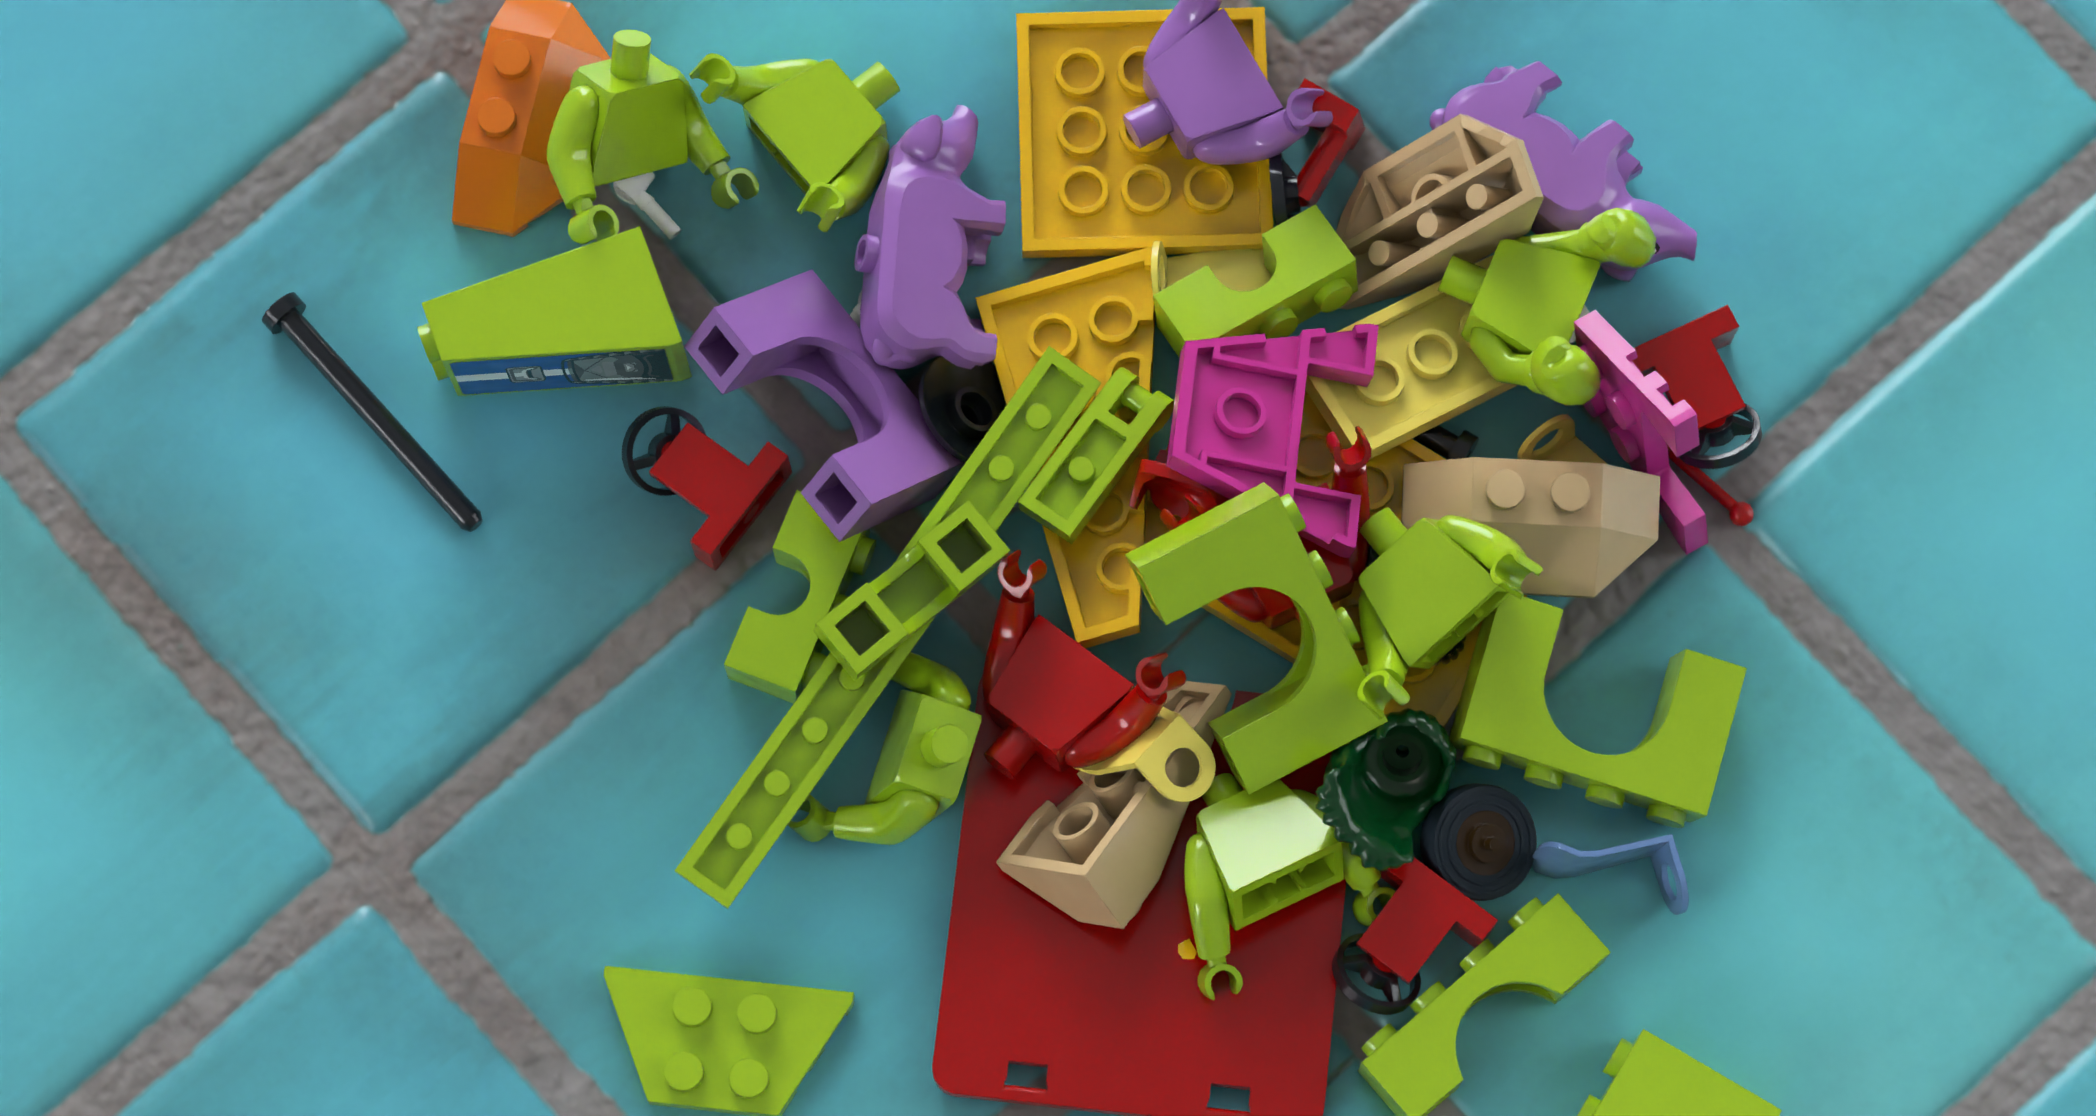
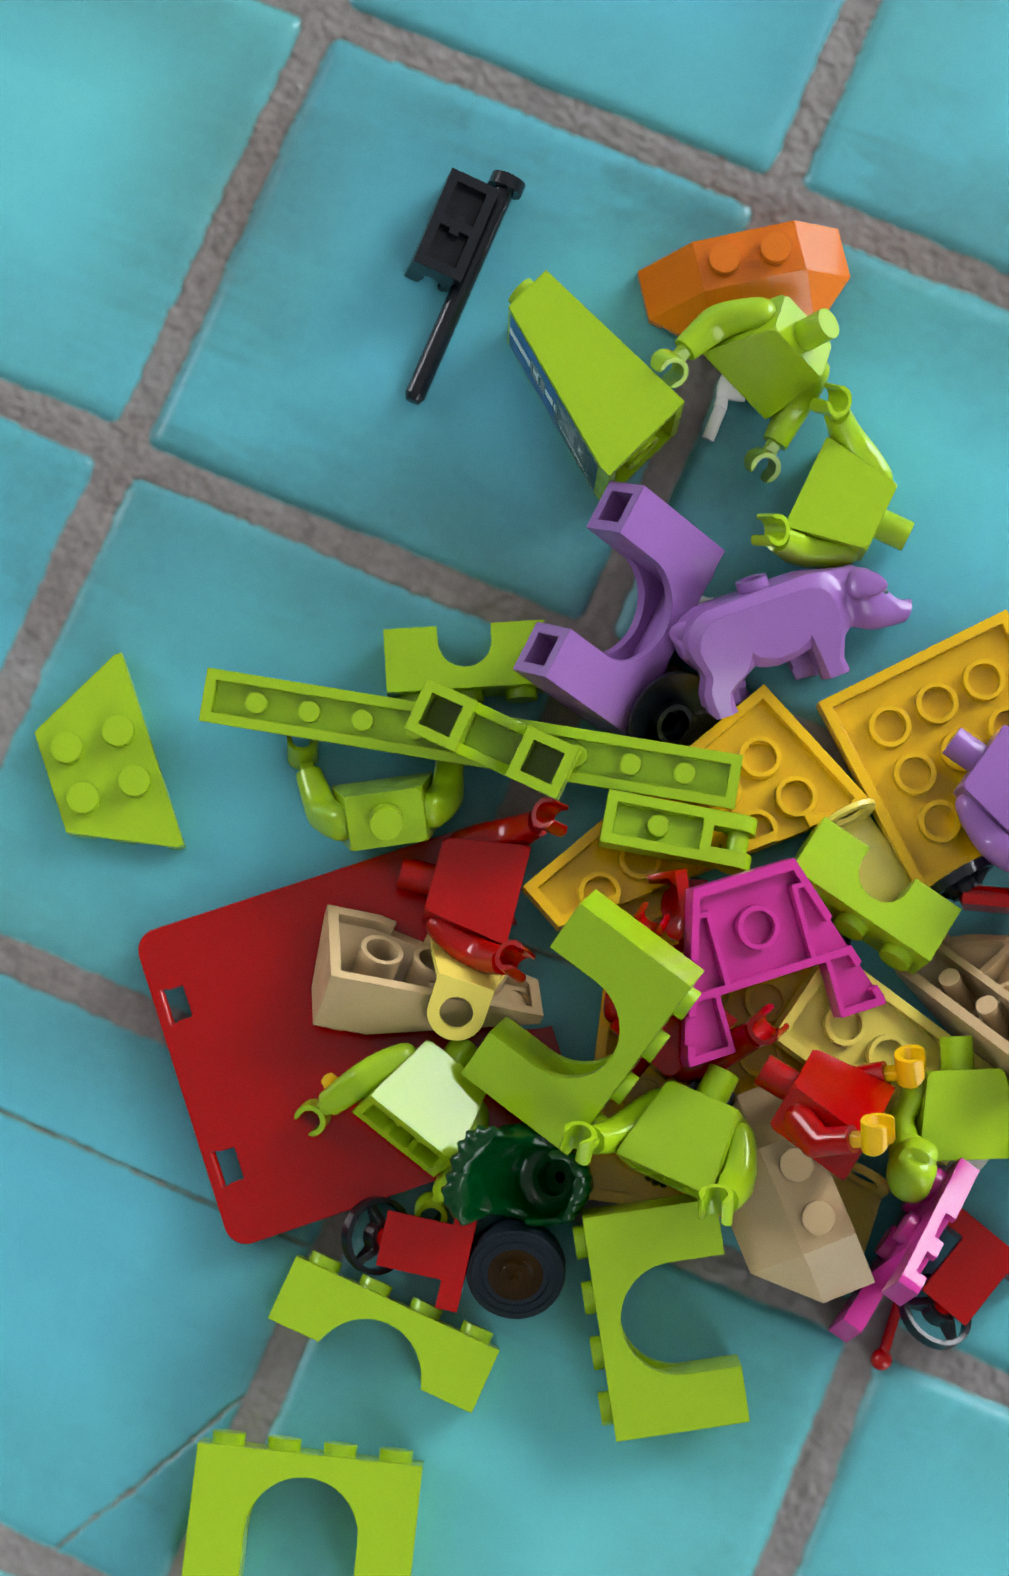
camera: 60 degrees right, 5 degrees up
(308, 393) = (452, 230): none -> black hinge
(707, 479) = (523, 550): red piece -> none
(1468, 416) = (837, 1107): none -> red torso
(1562, 861) = (570, 1421): medium blue piece -> none

